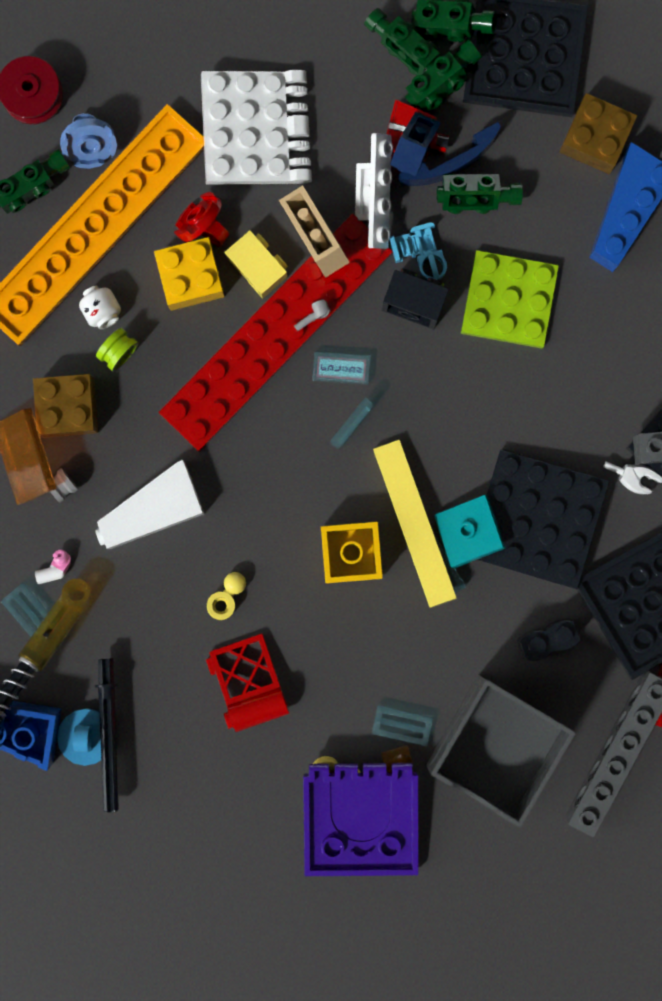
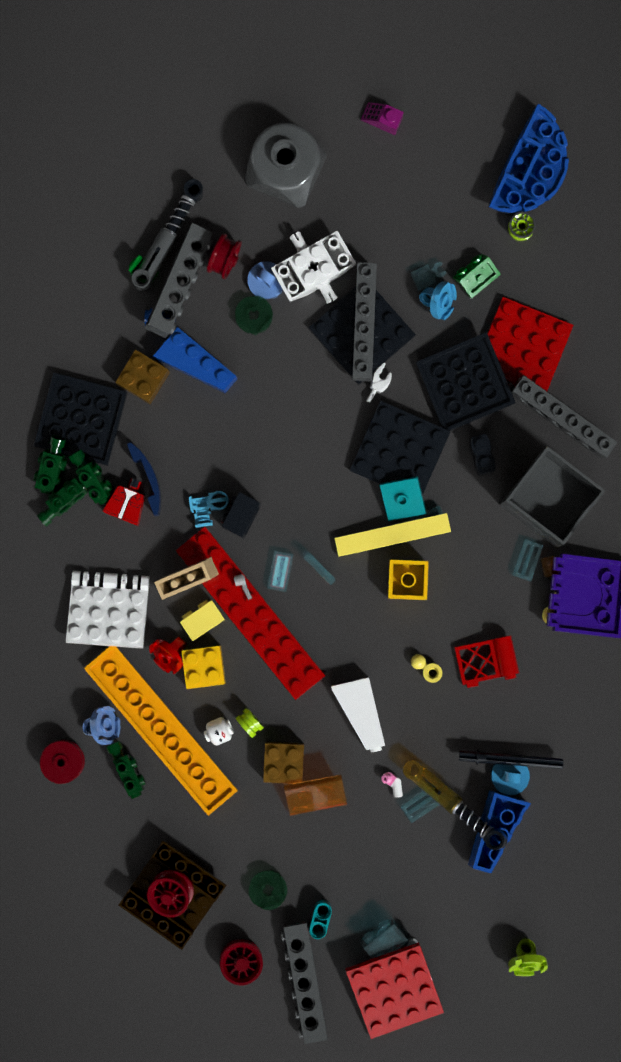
camera: 80 degrees left, 0 degrees up
(64, 485) = (338, 769): light grey wheel -> none
(373, 190) = (163, 534): white bracket -> none
(414, 144) = (136, 502): dark blue slope -> none
(476, 193) = (170, 467): dark green brick -> none
(509, 299) = (247, 451): lime plate -> none

